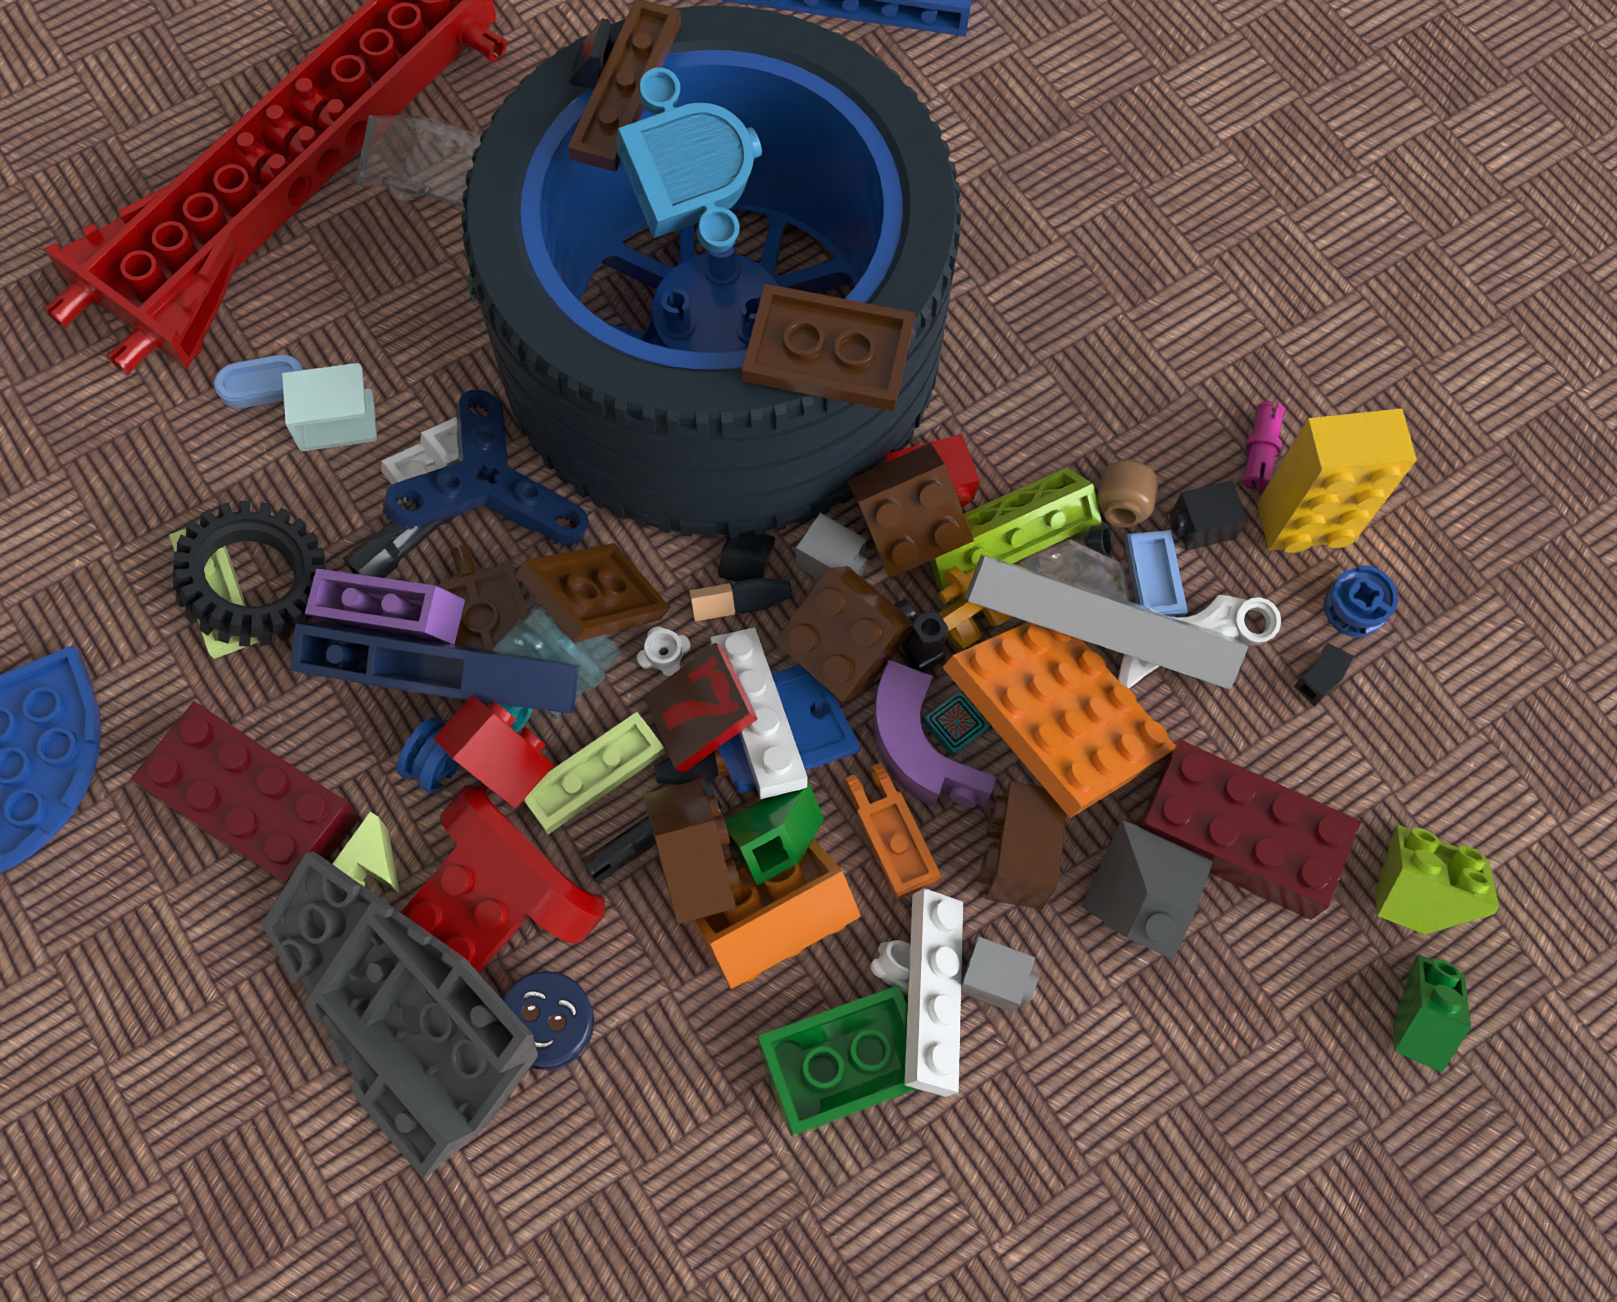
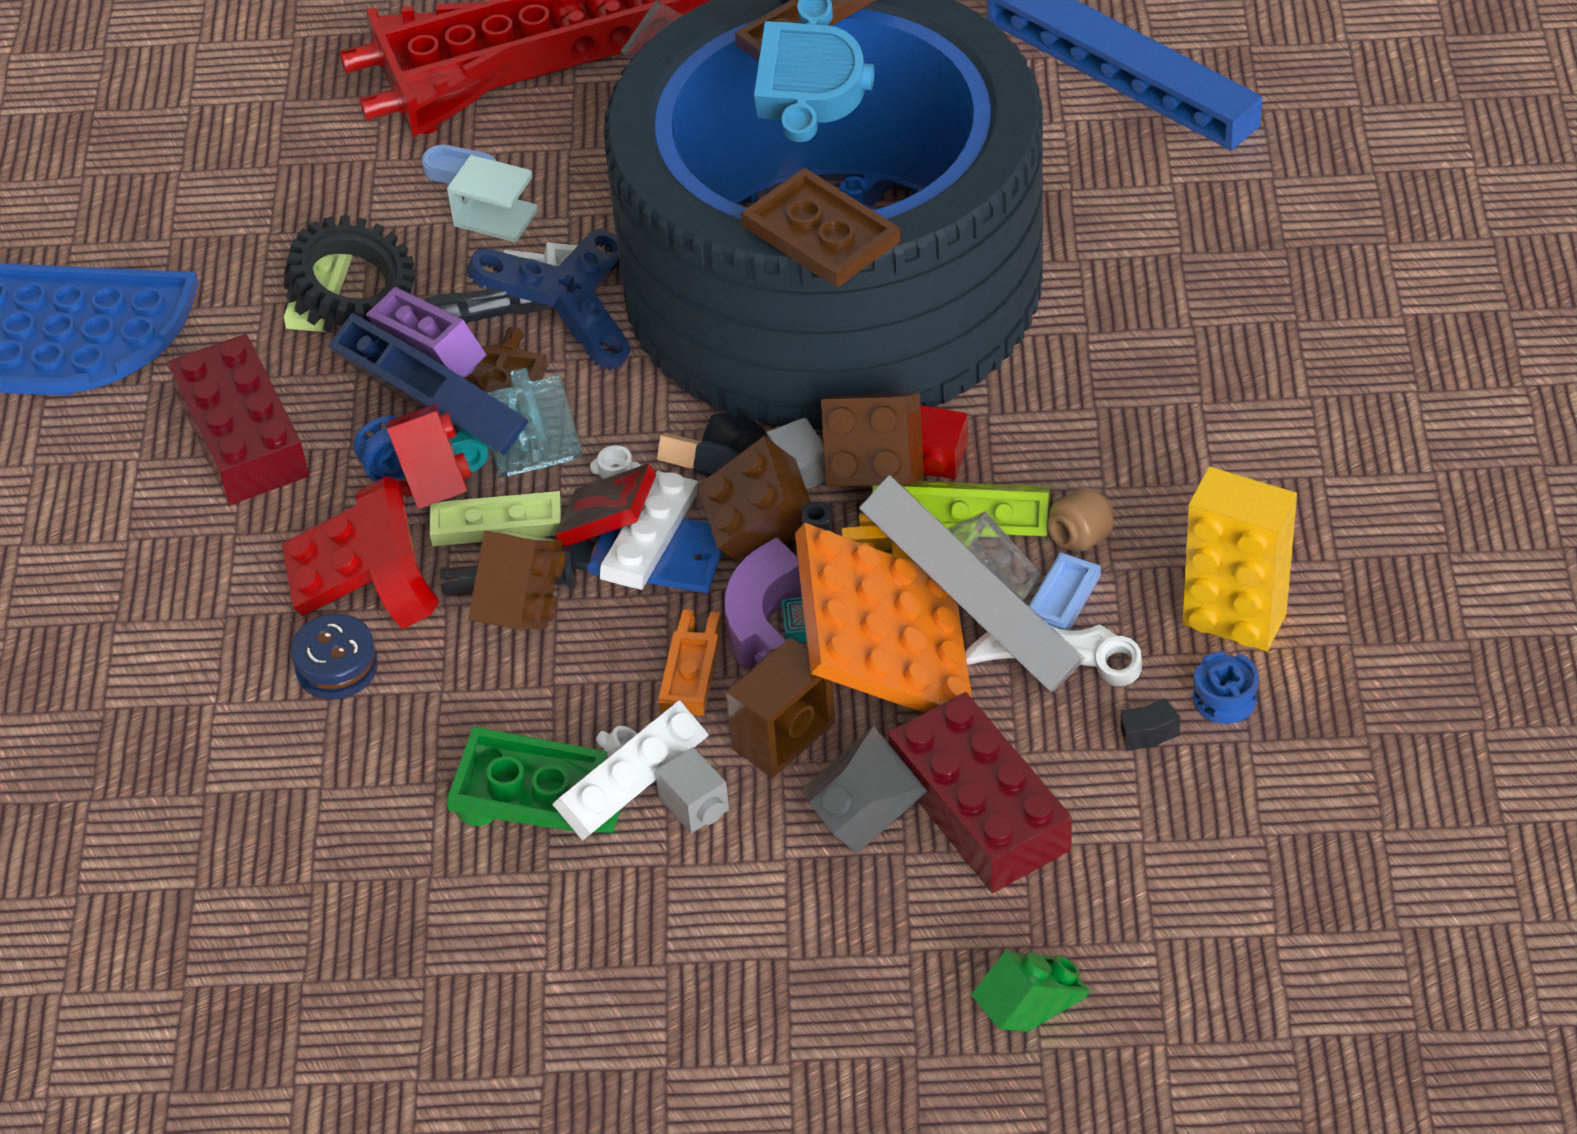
camera: 40 degrees right, 20 degrees down
(370, 854) = (287, 493): yellowish green slope -> none
(404, 1013) = (237, 594): dark grey wedge -> none
(592, 591) = (585, 390): reddish brown plate -> none
(774, 833) = (600, 612): green slope -> none
(778, 916) = (553, 667): orange slope -> none
(1097, 538) = (1033, 541): black hinge -> none
(1208, 515) = (1138, 567): black brick -> none
(1433, 883) = (1107, 898): lime slope -> none

